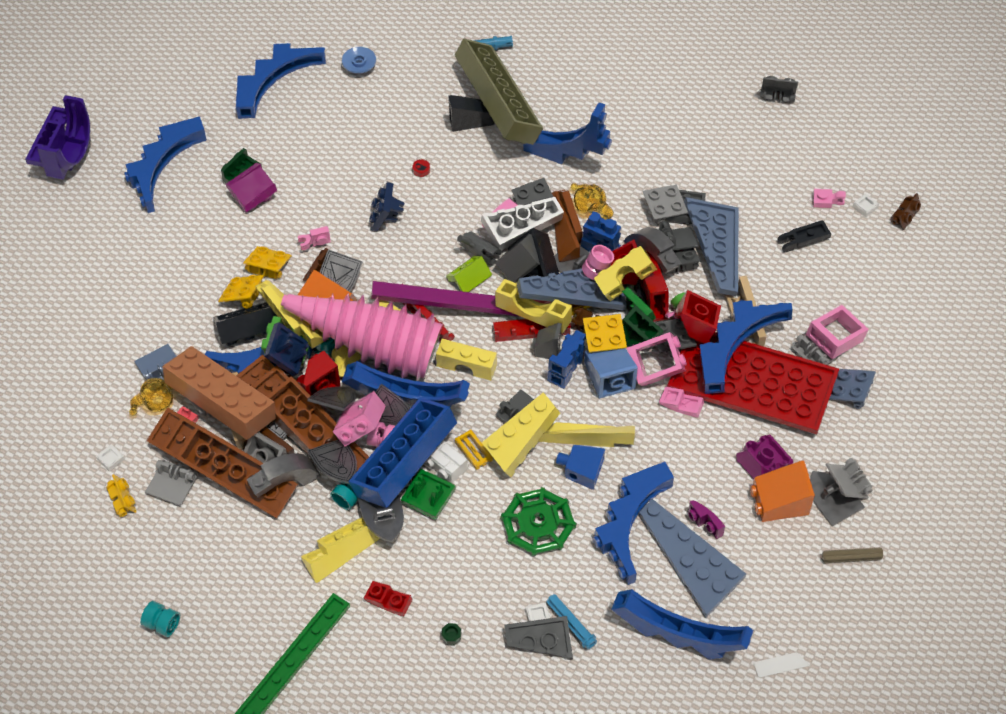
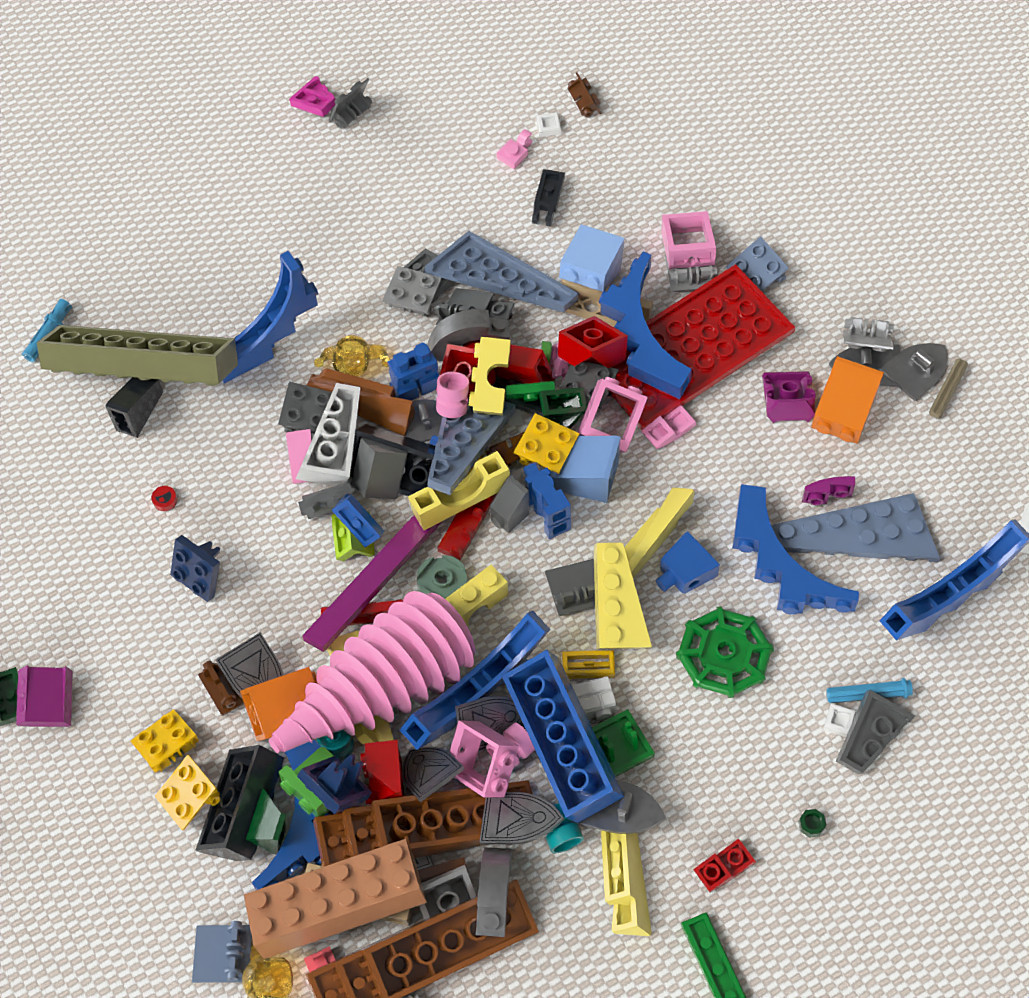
camera: 55 degrees left, 5 degrees up
(247, 337) = (267, 825): none -> dark green slope
(273, 297) = (262, 756): light yellow wedge -> none
(316, 237) = (176, 664): bright pink plate -> none
(475, 328) = (441, 567): none -> sand green plate
(476, 267) = (357, 520): none -> blue panel
(765, 281) = (592, 258): none -> light blue slope
(768, 67) = (313, 98): none -> dark pink wing
(854, 527) = (917, 368): none -> flat silver shield

